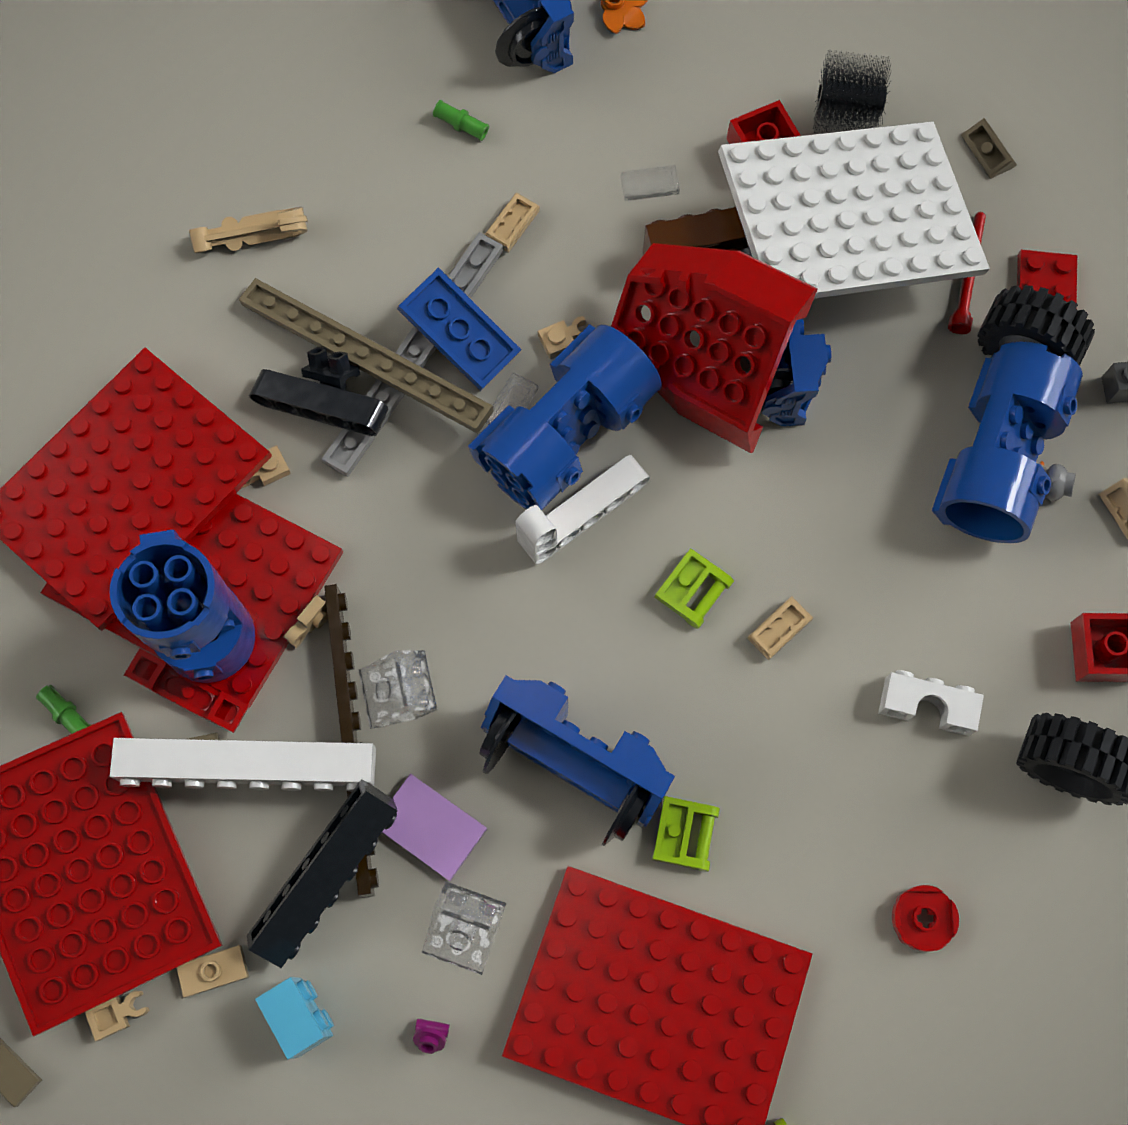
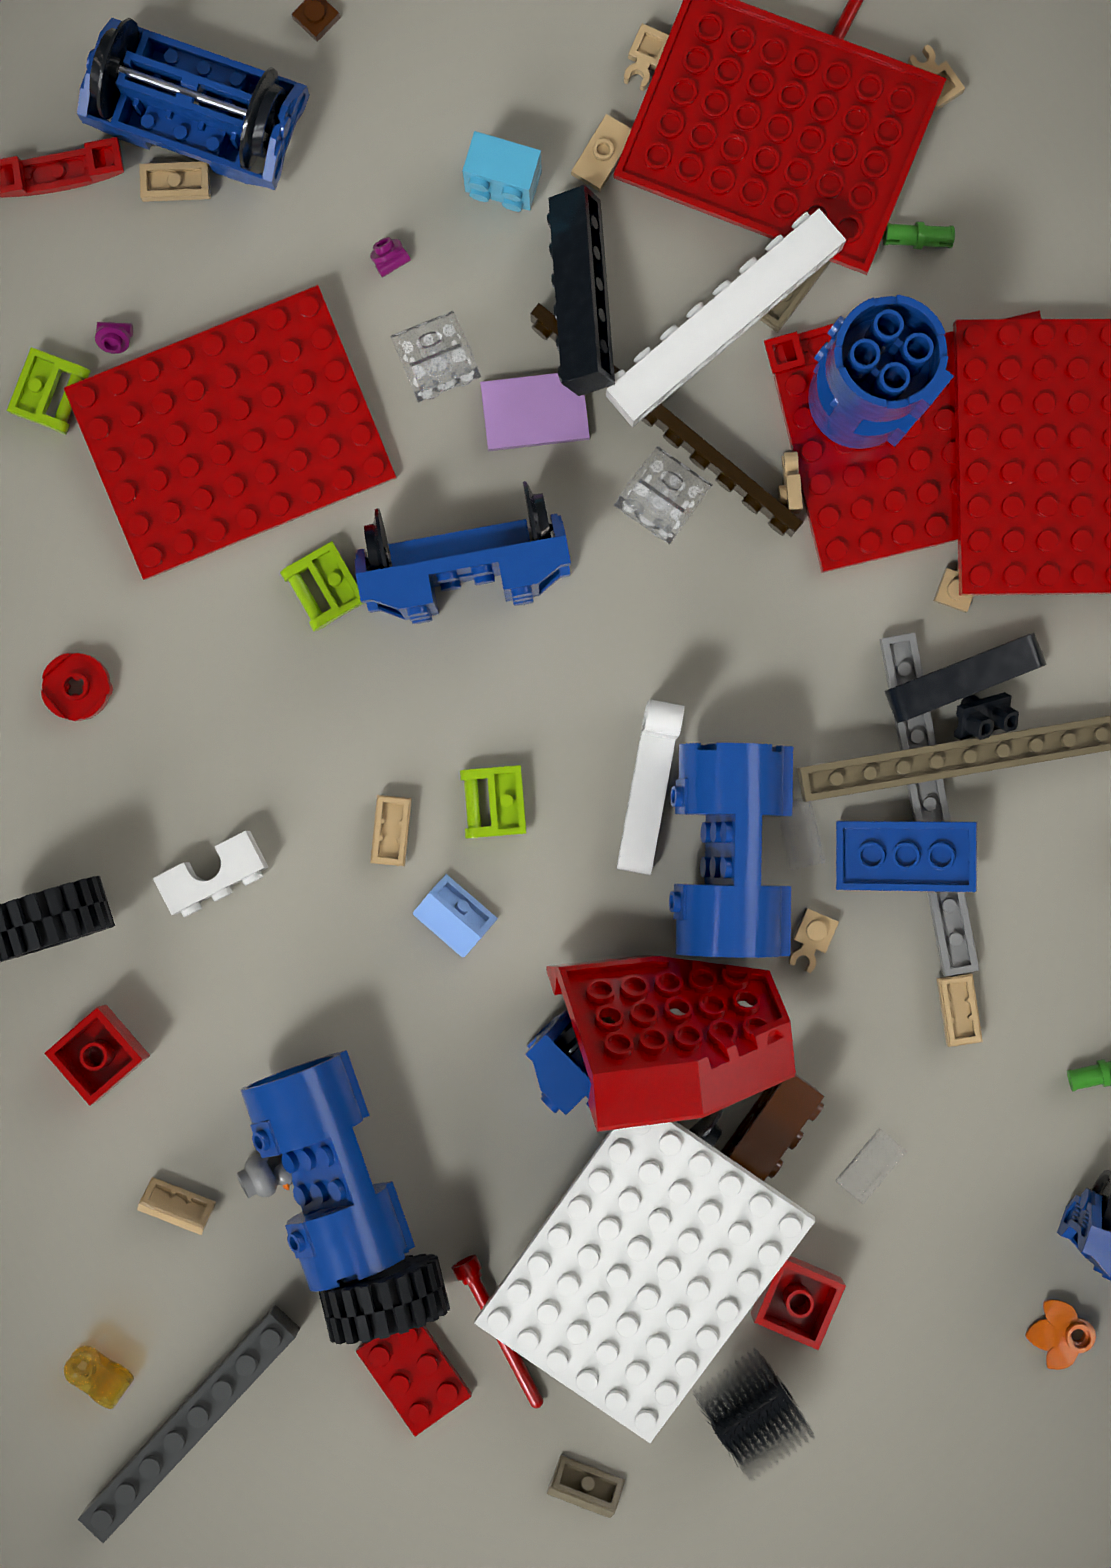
camera: 140 degrees right, 15 degrees up
(783, 537) = (454, 916): none -> light blue panel

